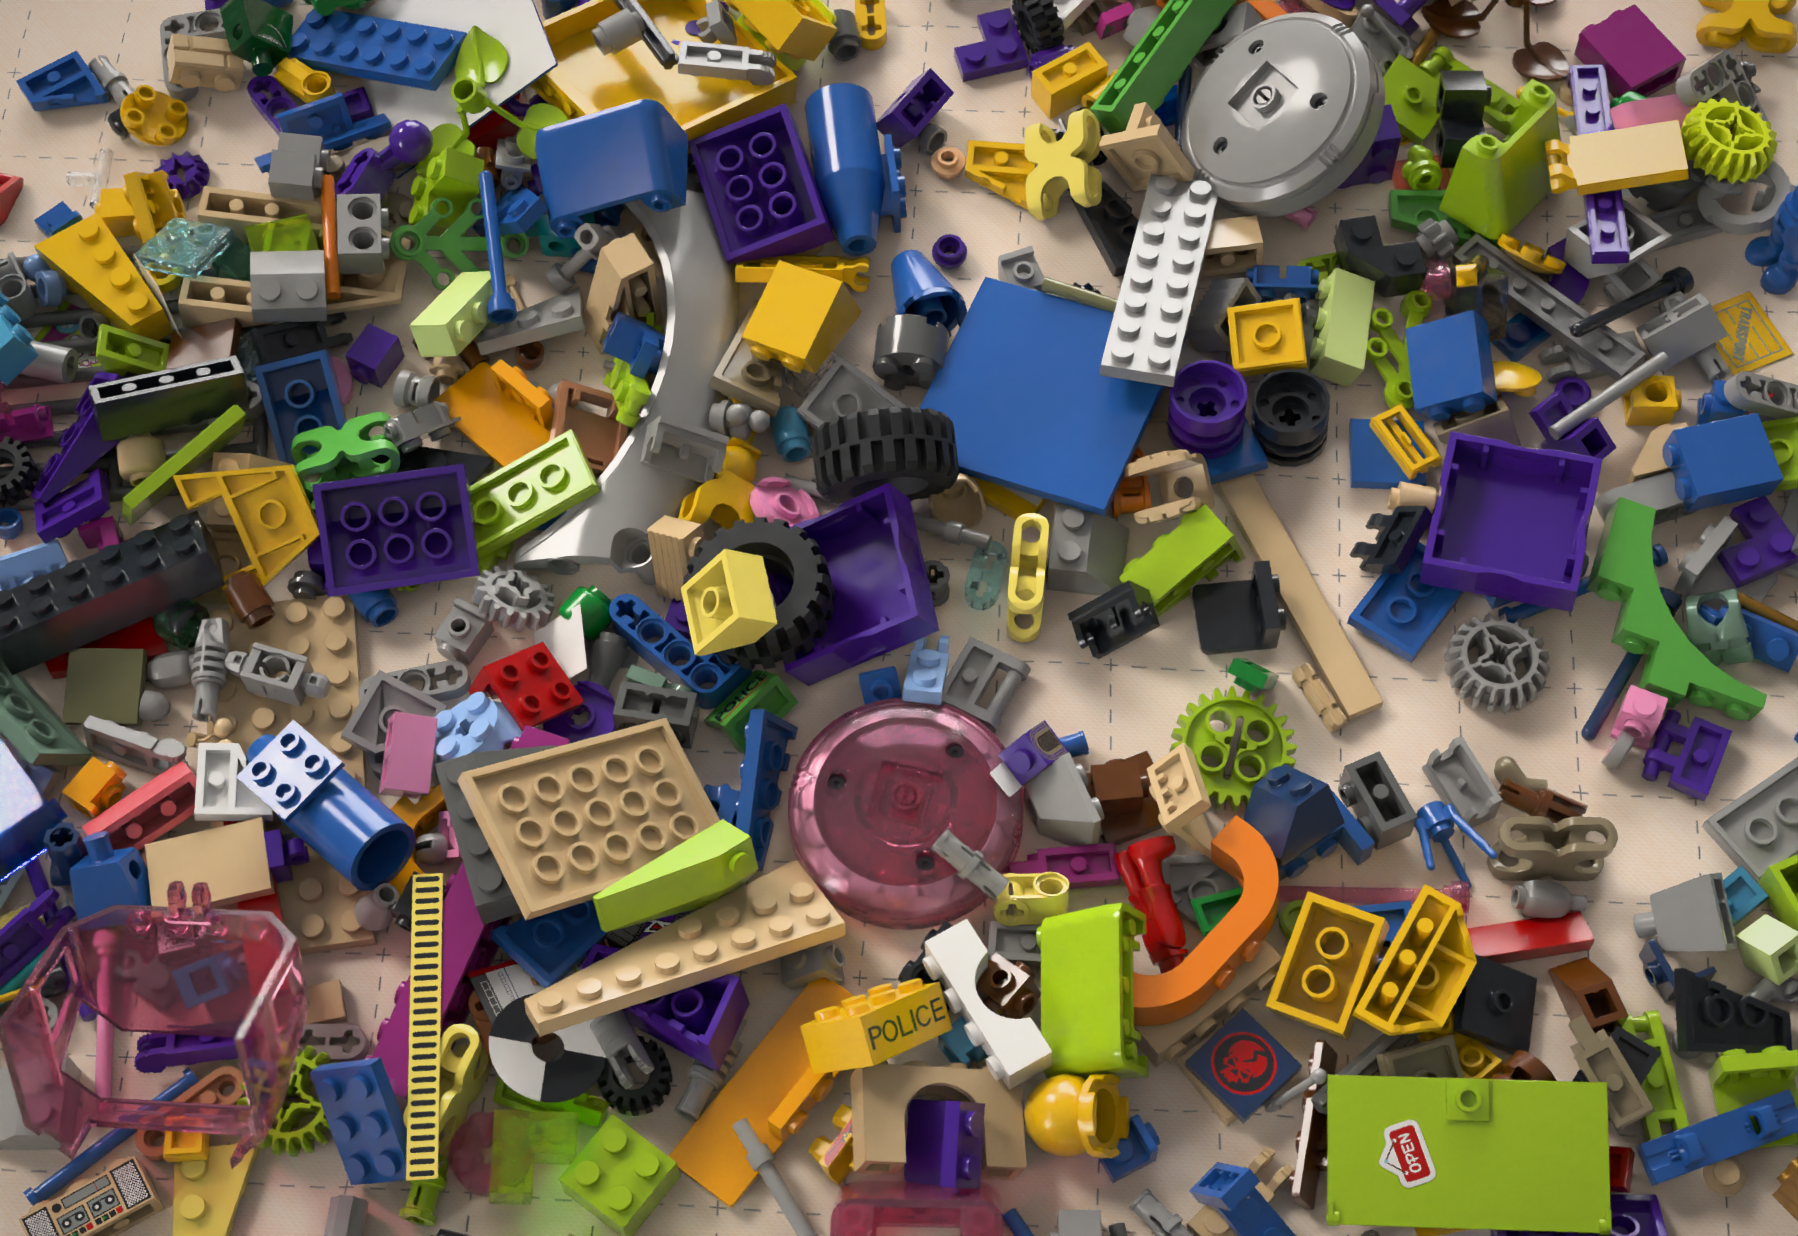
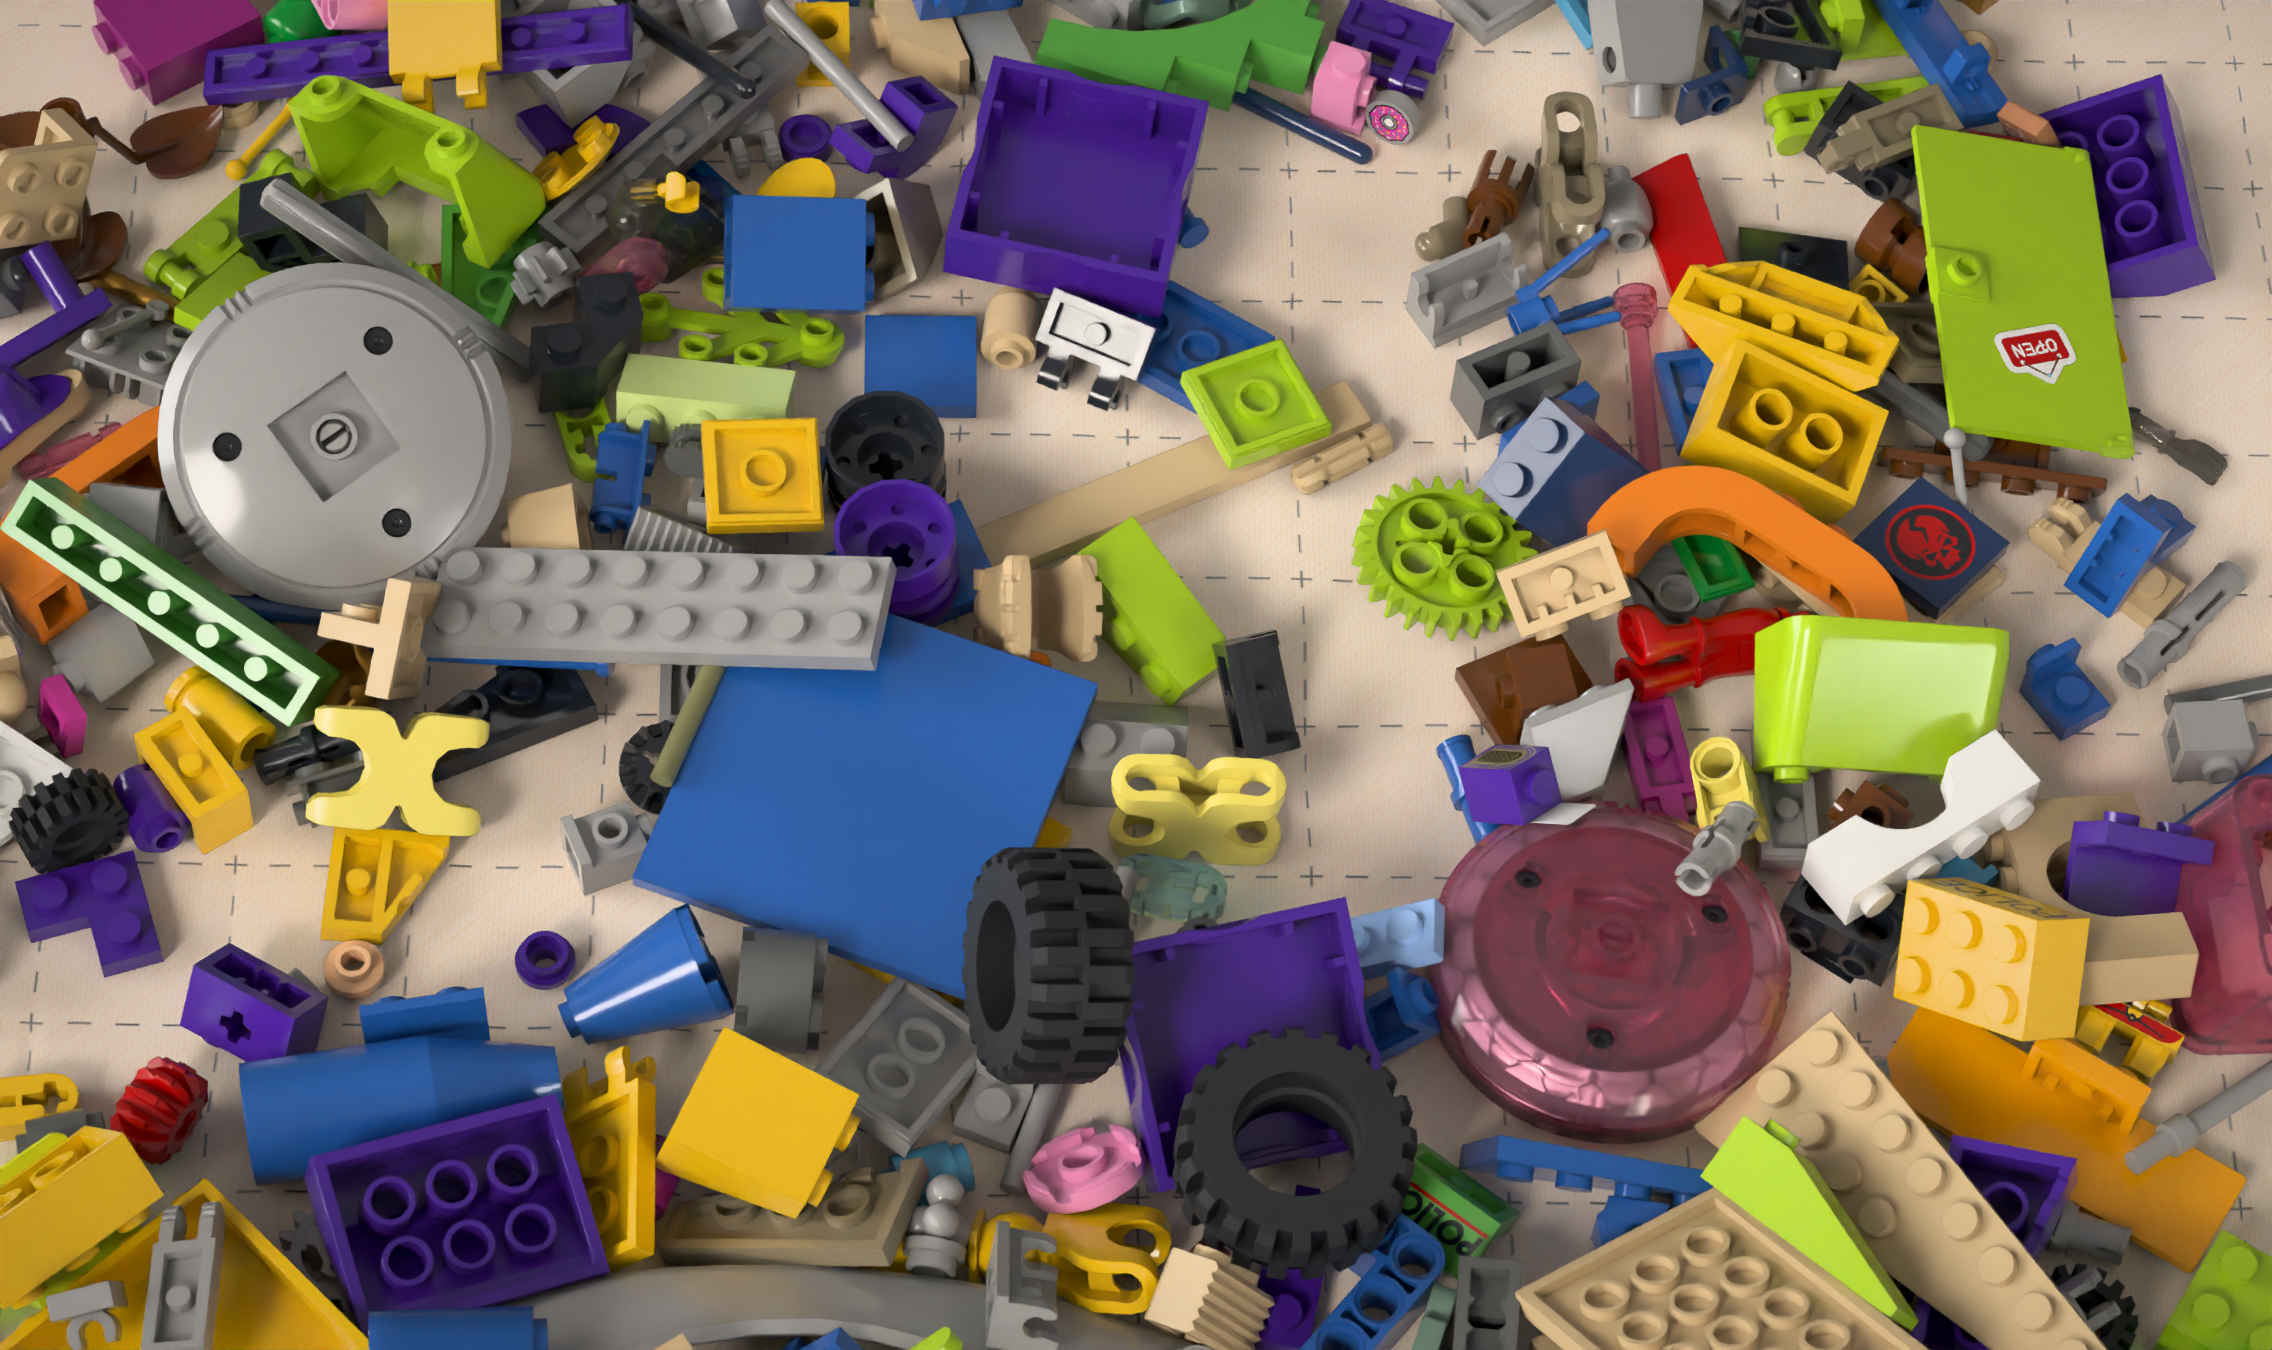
camera: 100 degrees left, 5 degrees down
(728, 603) = (1368, 1153): light yellow slope -> none
(854, 65) = (160, 1109): none -> red gear
(972, 676) = (1364, 891): light grey plate -> none
(1078, 1115) = (2057, 727): yellow tile -> none
(1239, 613) = (1220, 540): black bracket -> none
(1251, 675) = (1335, 519): green plate -> none
(1351, 636) = (1255, 404): none -> lime plate
(1402, 134) = (355, 248): none -> light grey axle
(1420, 465) = (915, 339): yellow tile -> none
(1490, 681) = (1266, 259): light grey gear -> none
(1589, 992) = (1767, 164): reddish brown slope -> none
(1632, 1194) = (2027, 125): none -> nougat tile

